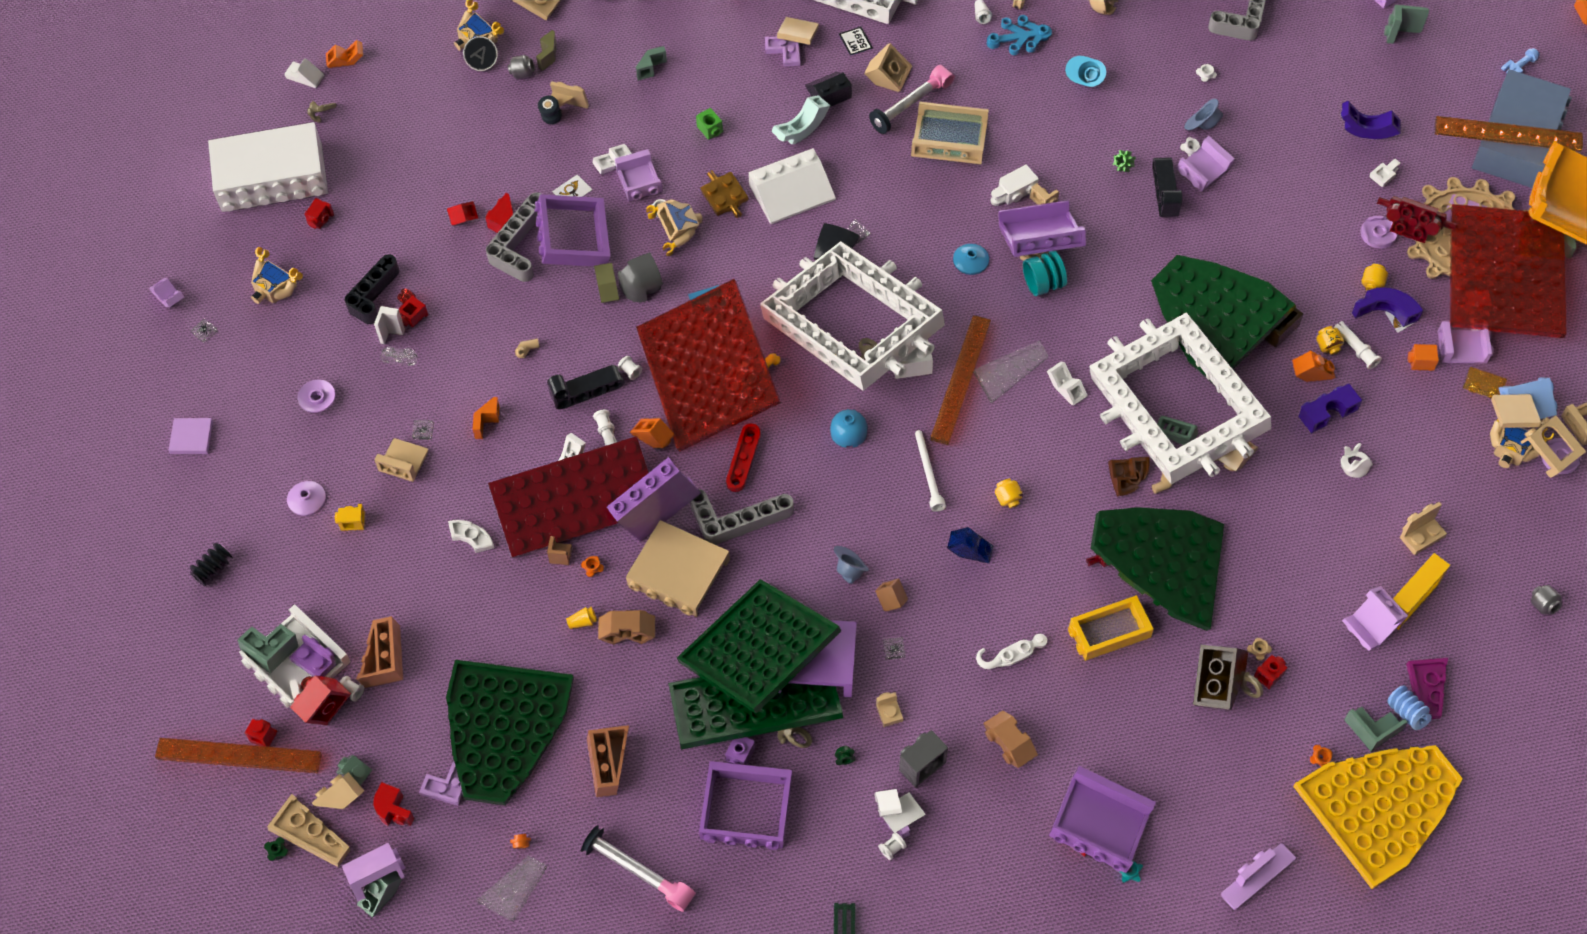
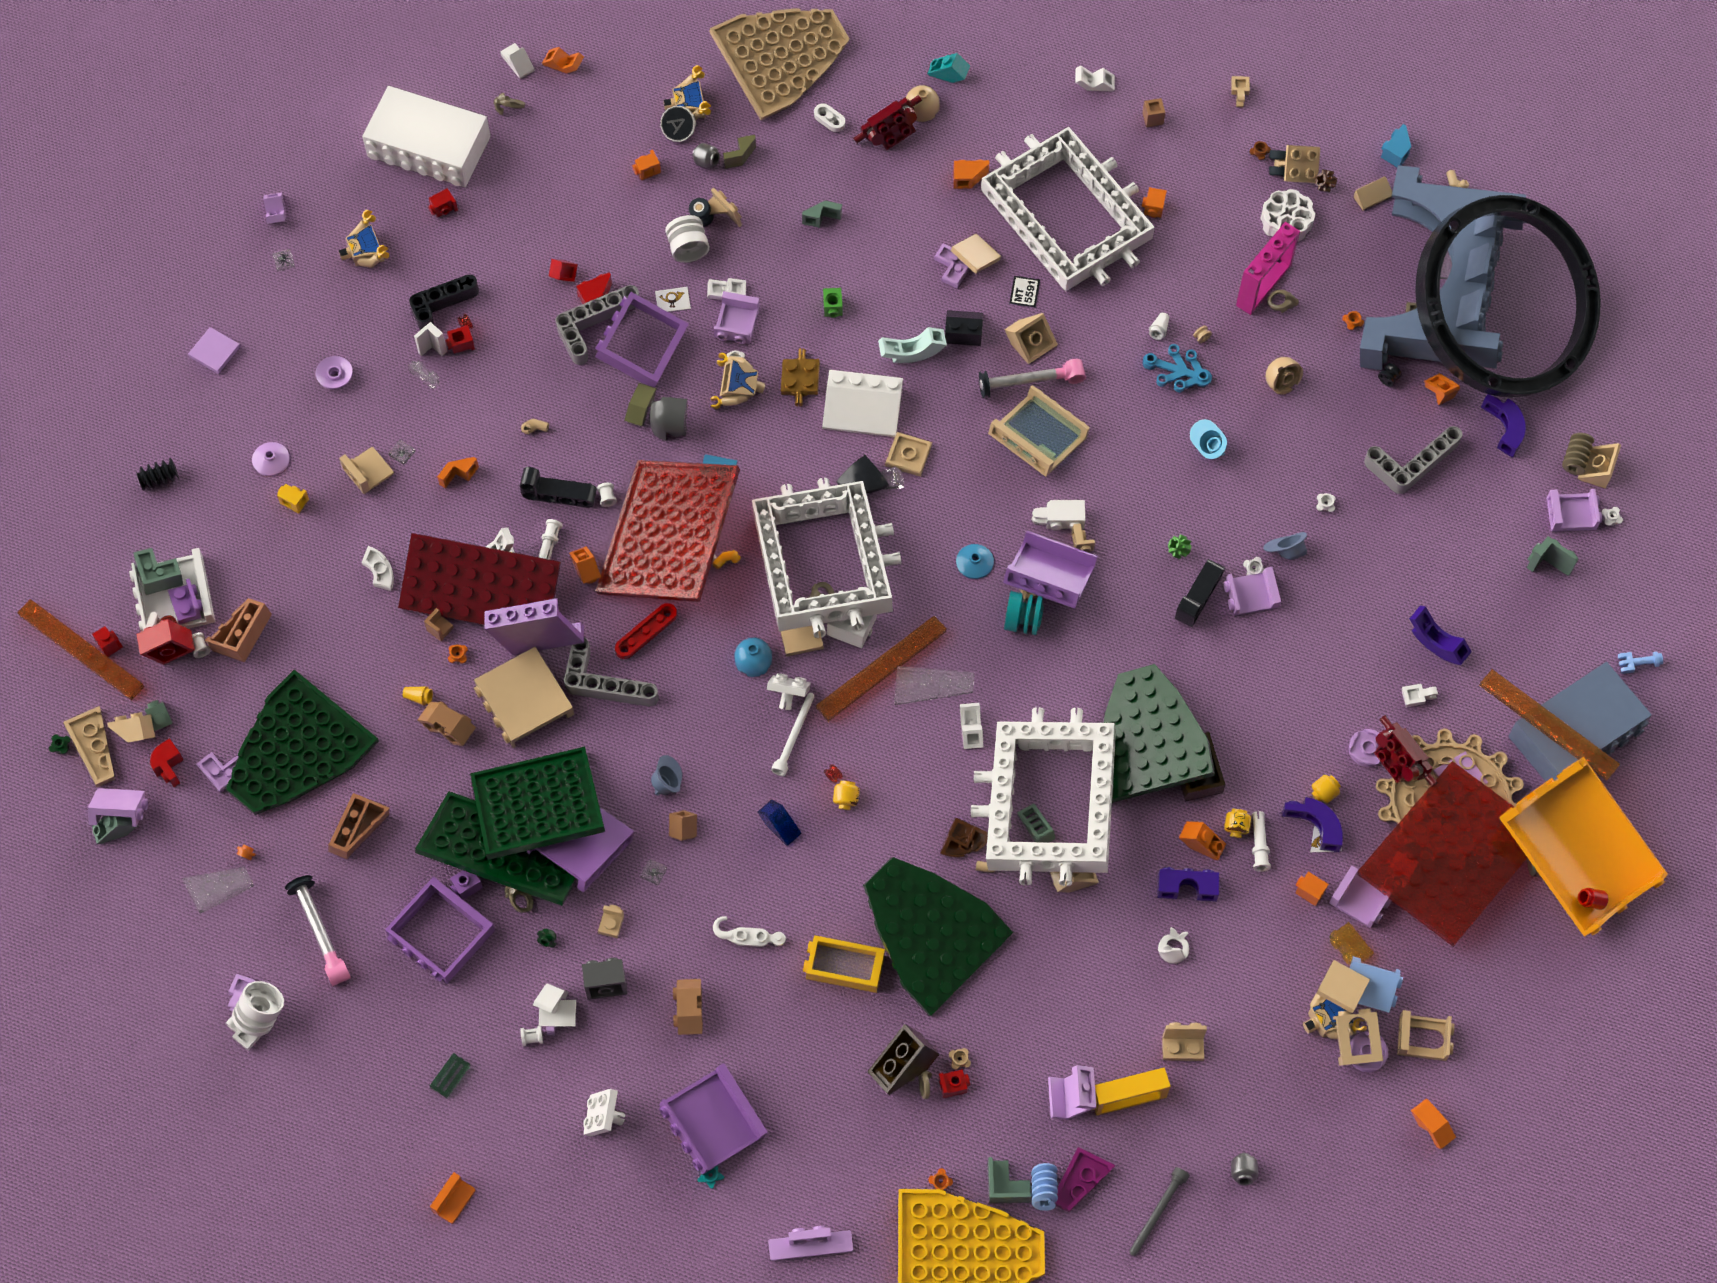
camera: 30 degrees right, 5 degrees up
(477, 98) = (647, 166): none -> orange brick
(554, 134) = (687, 238): none -> white wheel
(856, 205) = (908, 454): none -> tan tile
(876, 394) = (800, 641): none -> tan tile
(899, 435) = (788, 687): none -> white plate
(985, 482) = (833, 773): none -> clear red bush
(1003, 873) = (602, 1113): none -> white plate
(1502, 638) = (1179, 1177): none -> dark grey piece

